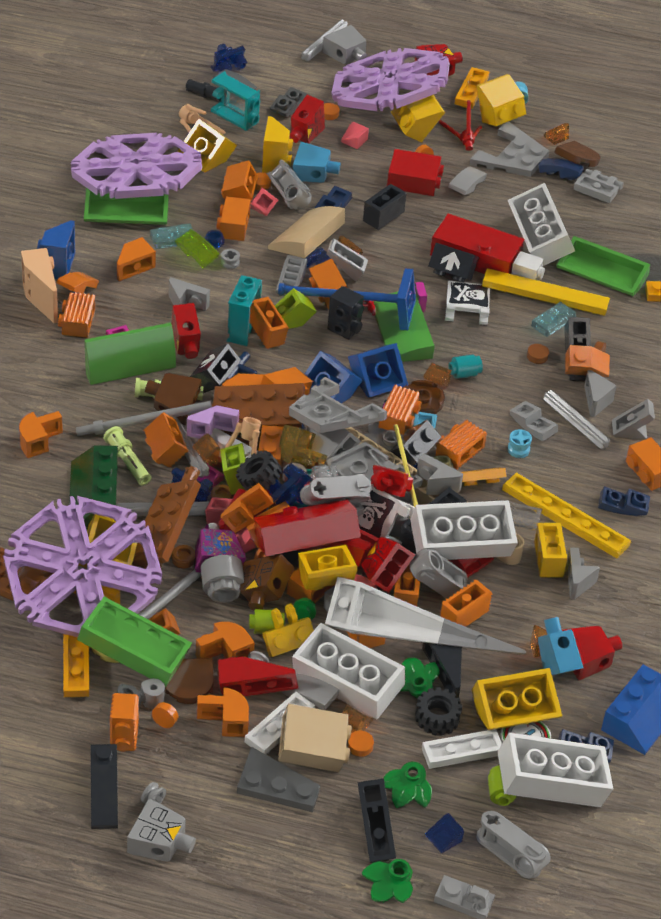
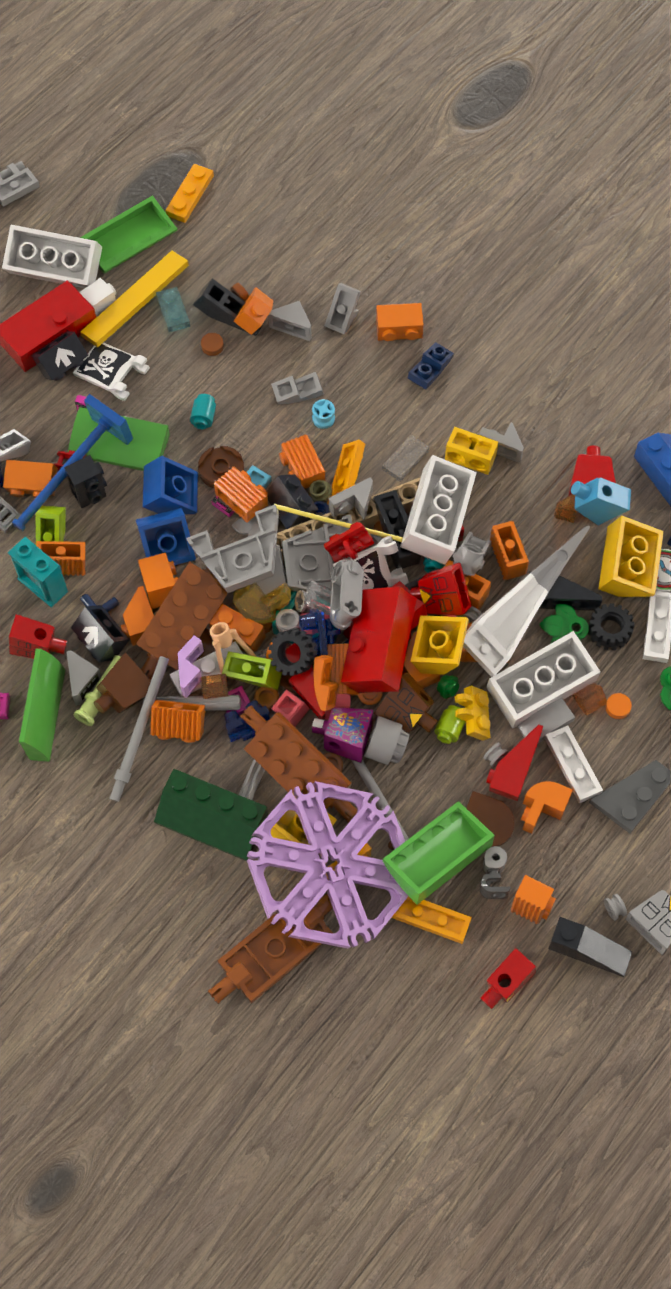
camera: 60 degrees left, 20 degrees up
(36, 431) = (100, 844): orange brick -> none
(44, 731) = (515, 969): none -> red torso
(140, 473) = (163, 769): yellowish green pin -> none
(165, 715) = (525, 859): orange tile -> none
(166, 620) = (411, 818): orange slope -> none
(175, 365) = (82, 675): none -> light grey slope
(226, 639) = (460, 766): orange brick -> none
(314, 738) = (610, 742): tan brick -> none
(438, 374) = (205, 440): clear orange slope -> none
(567, 515) = (423, 418): yellow tile -> none
(576, 419) = (312, 353): light grey axle -> none

